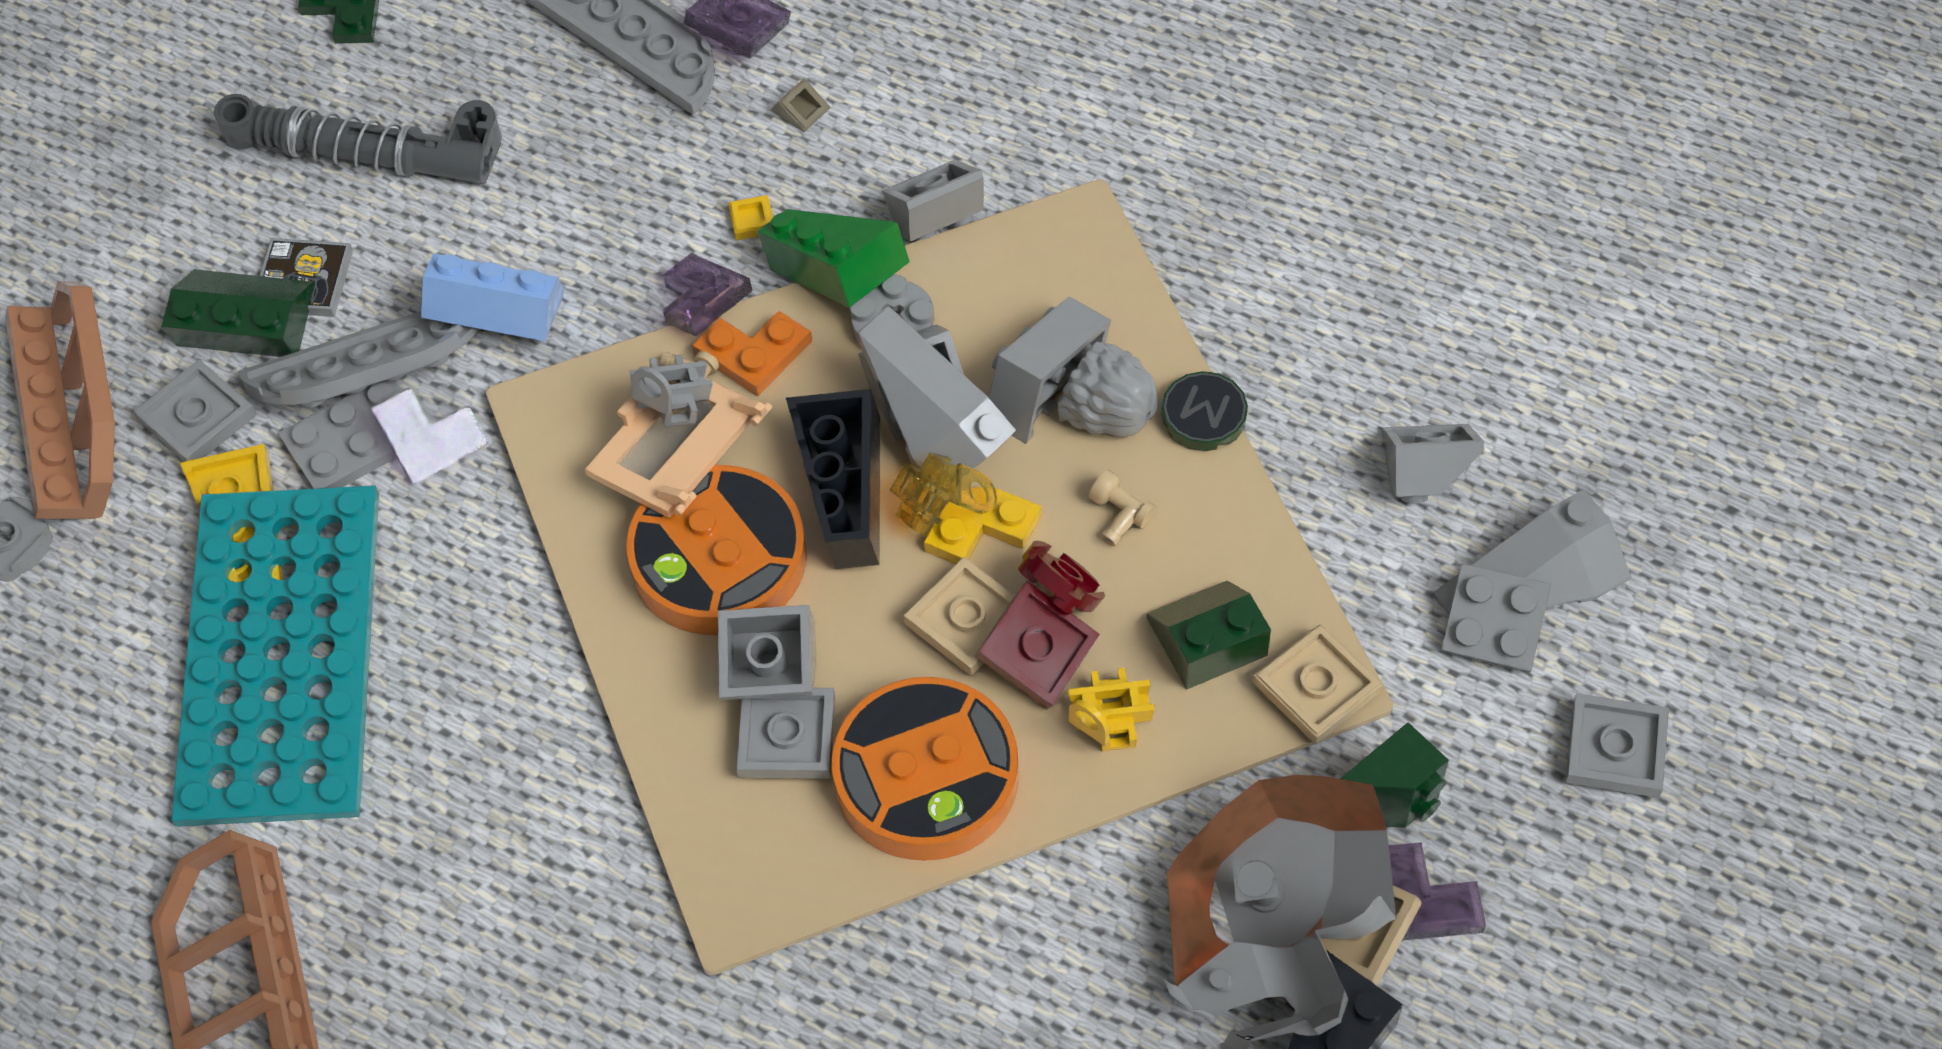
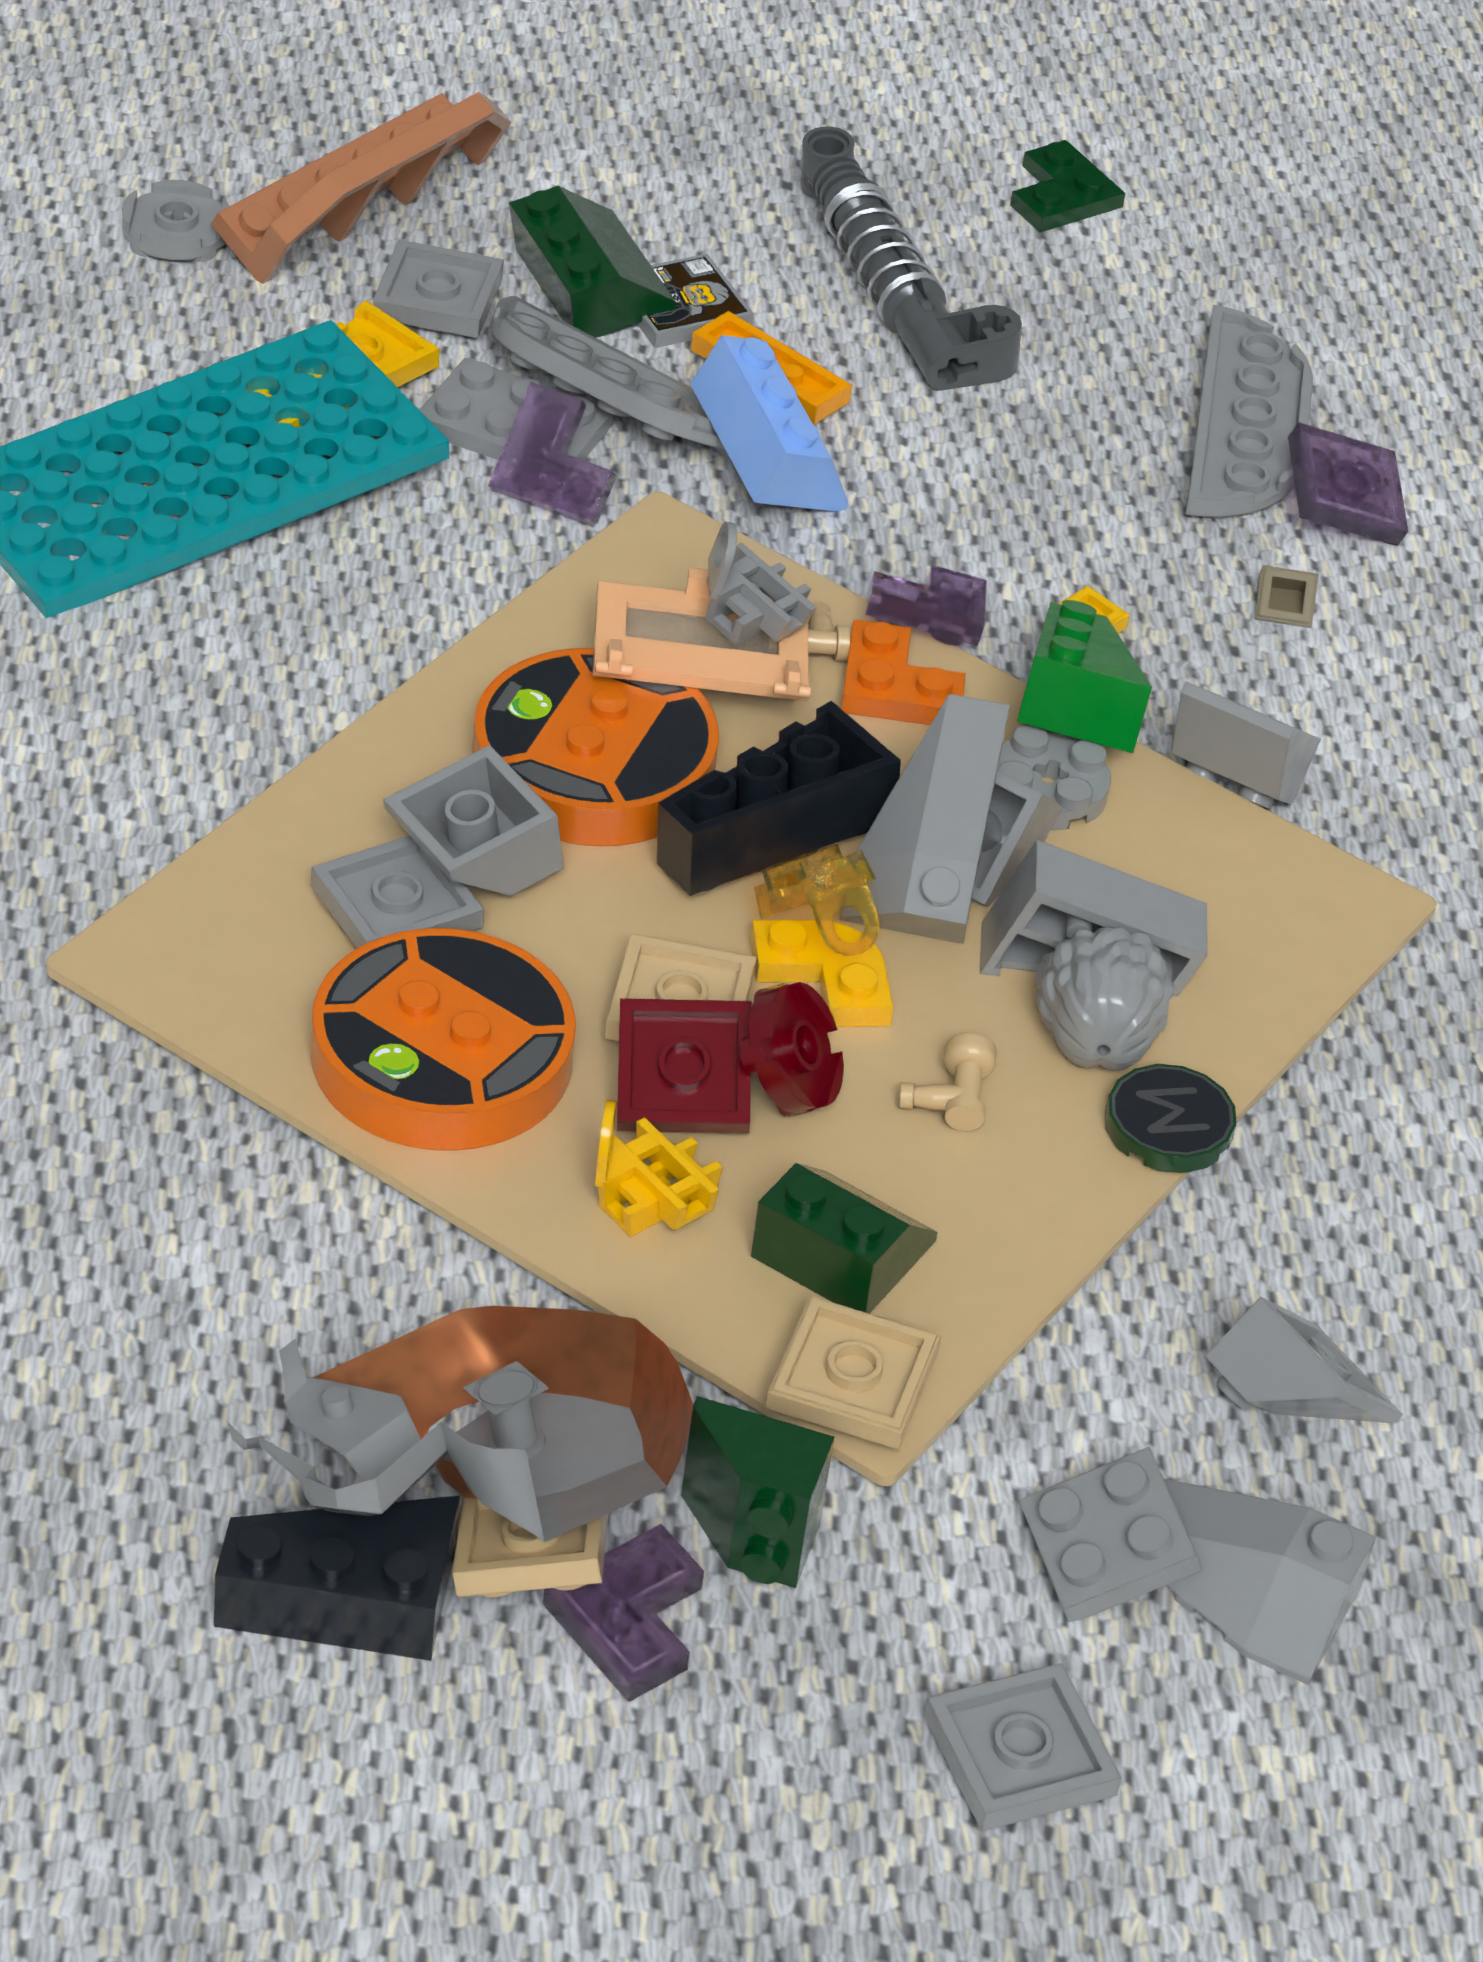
camera: 50 degrees right, 15 degrees down
(403, 262) = (815, 386): none -> light orange plate

